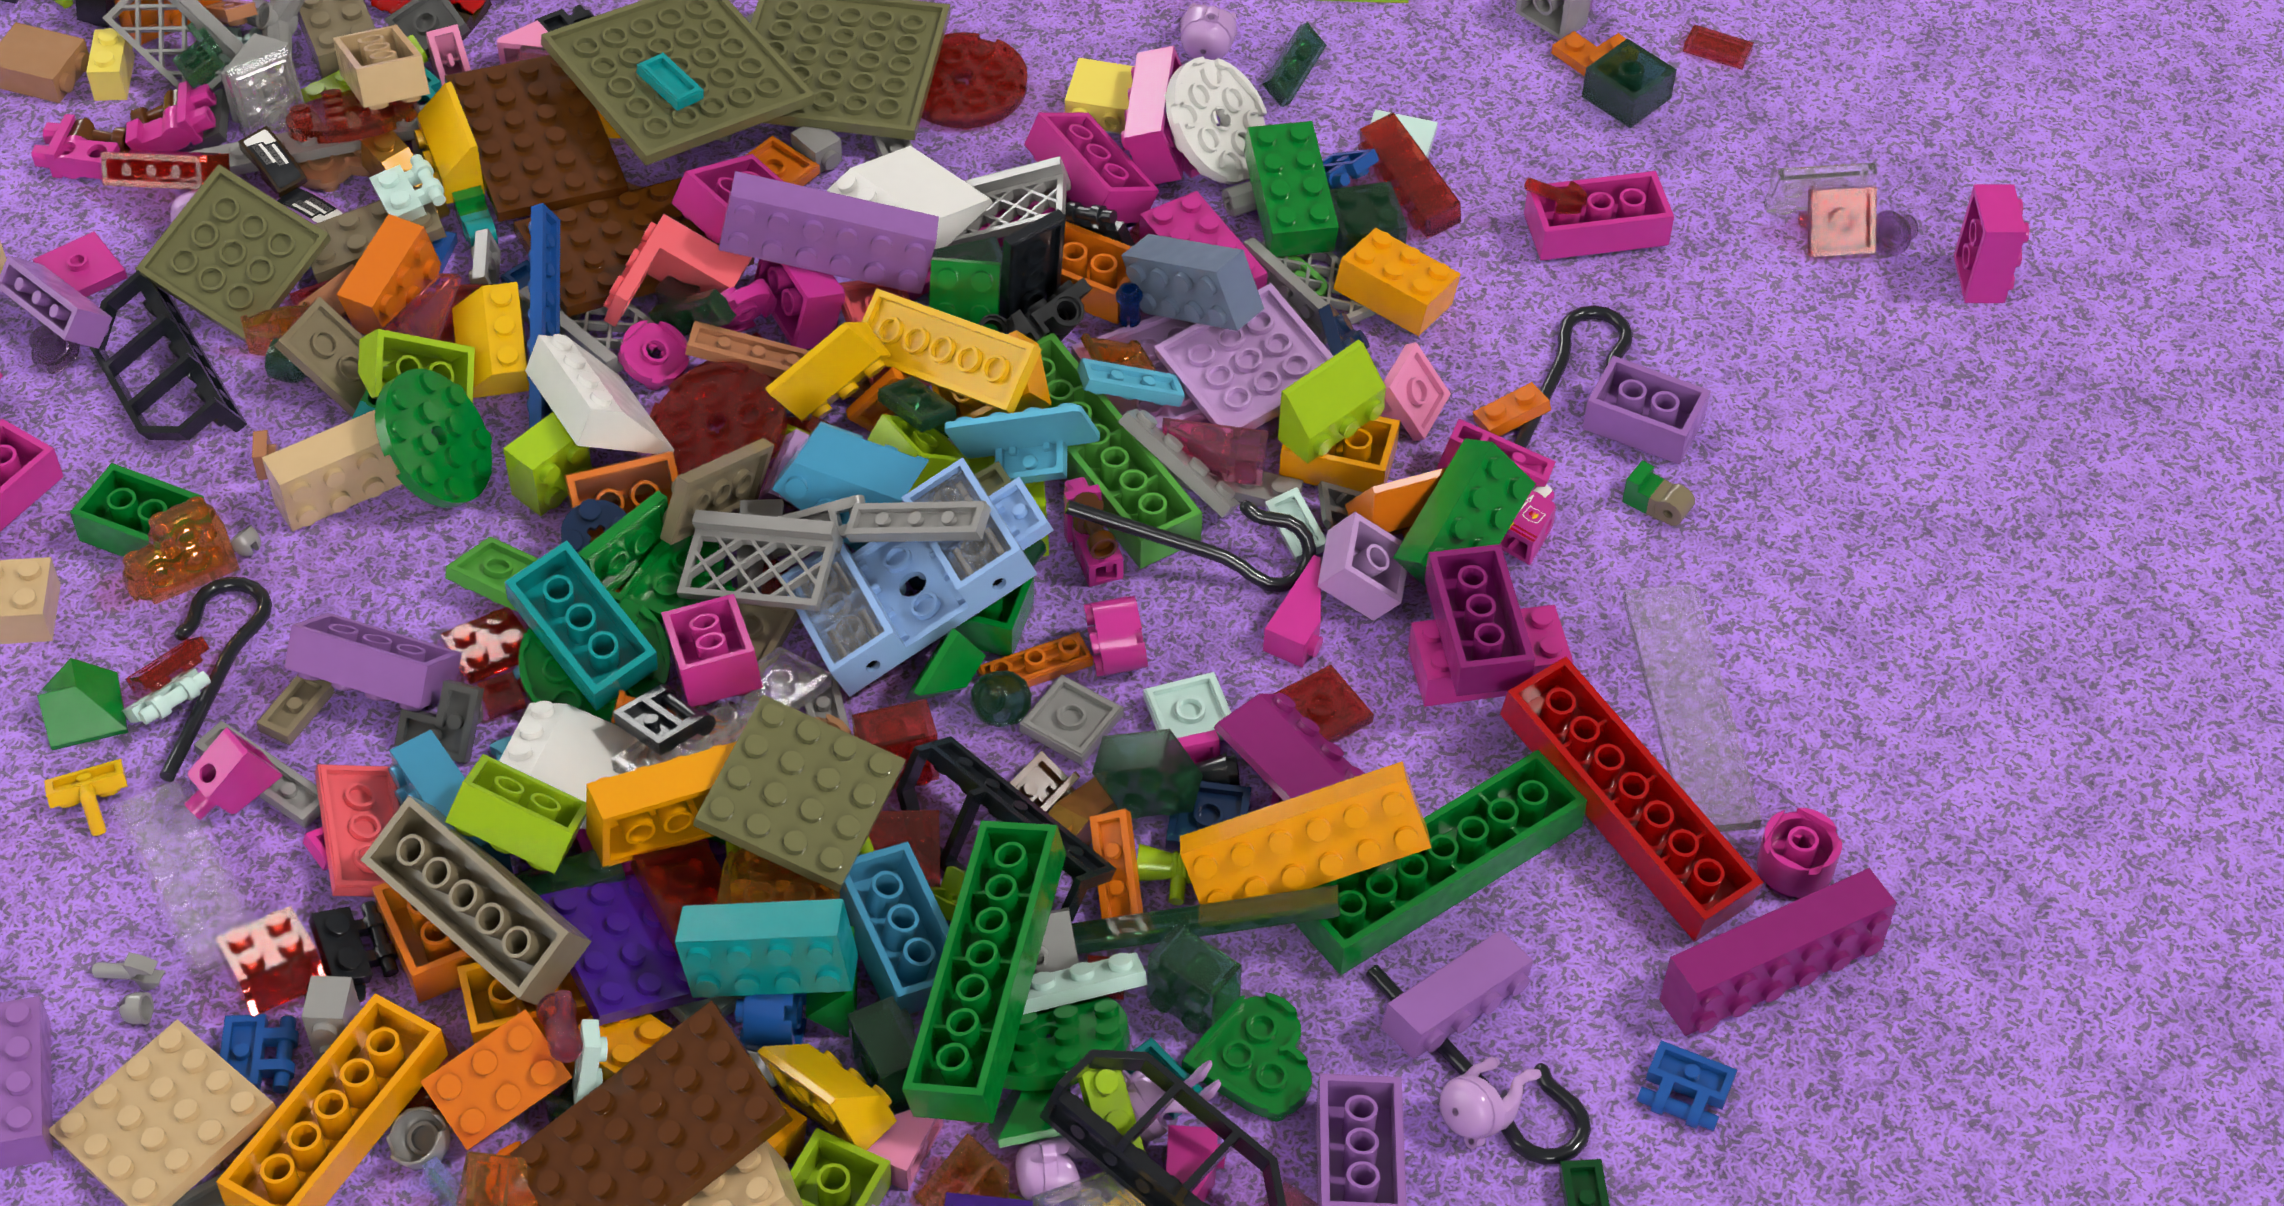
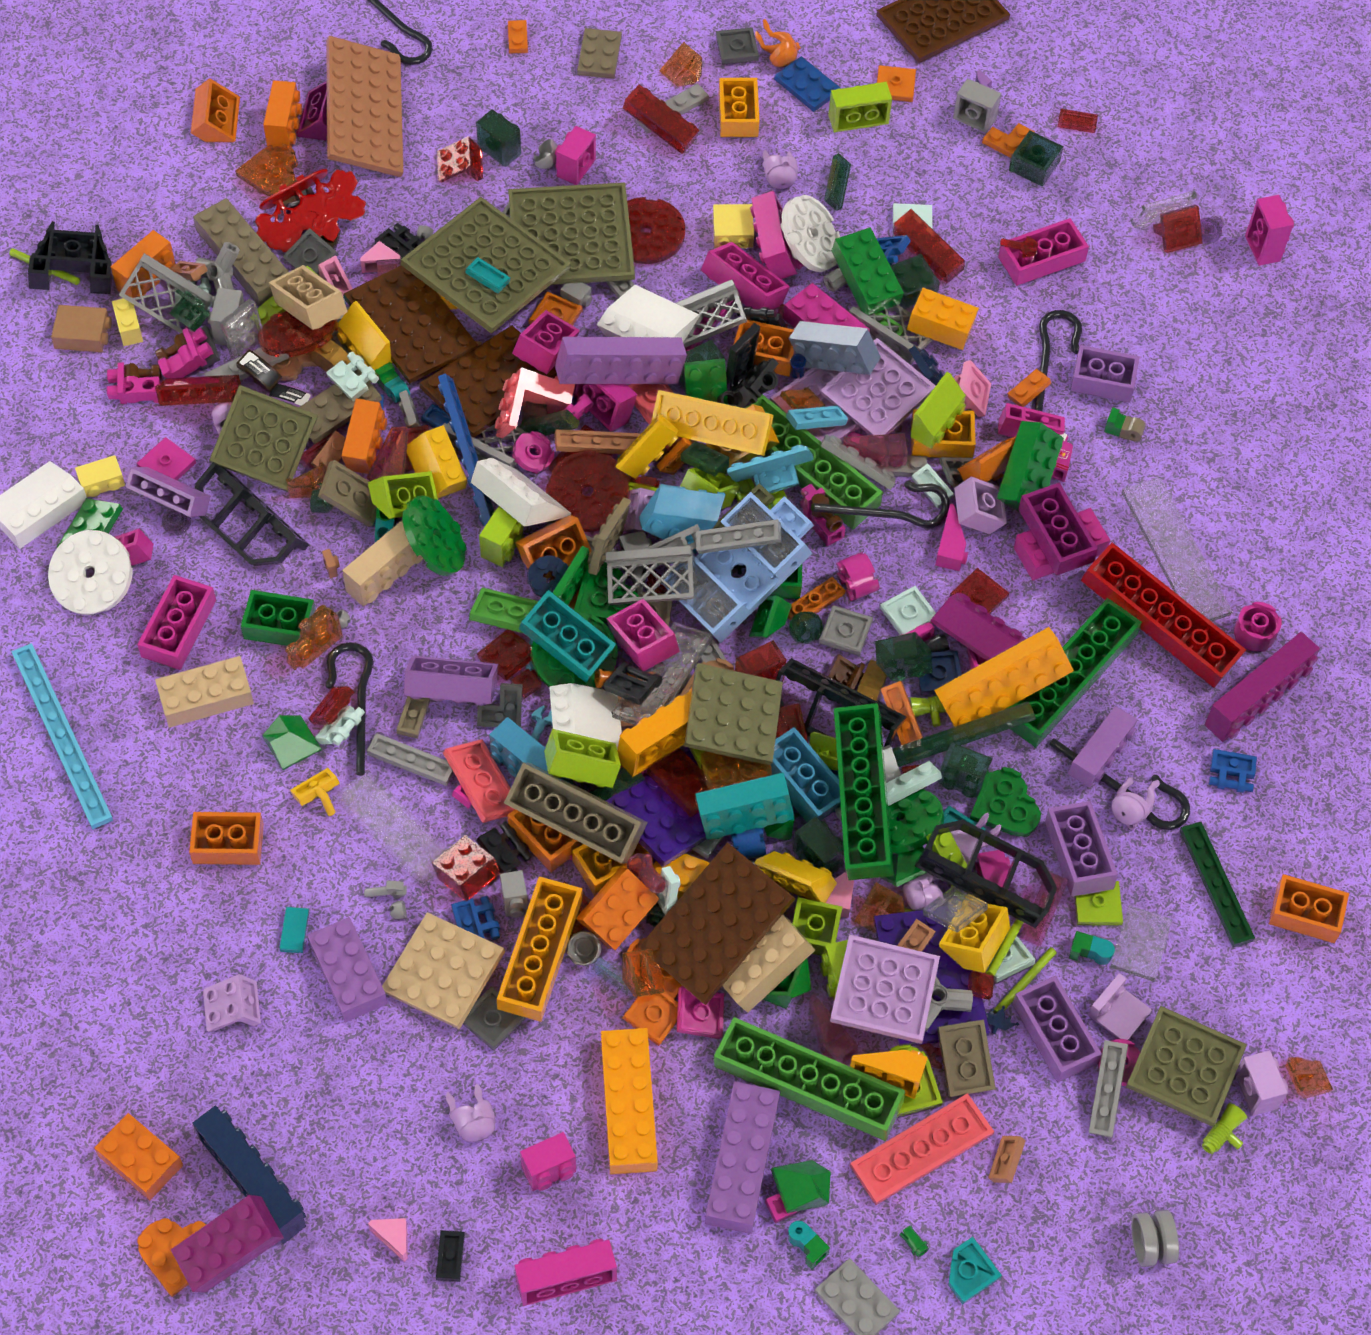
camera: 15 degrees left, 10 degrees up
(229, 775) = (405, 762): dark pink torso -> none

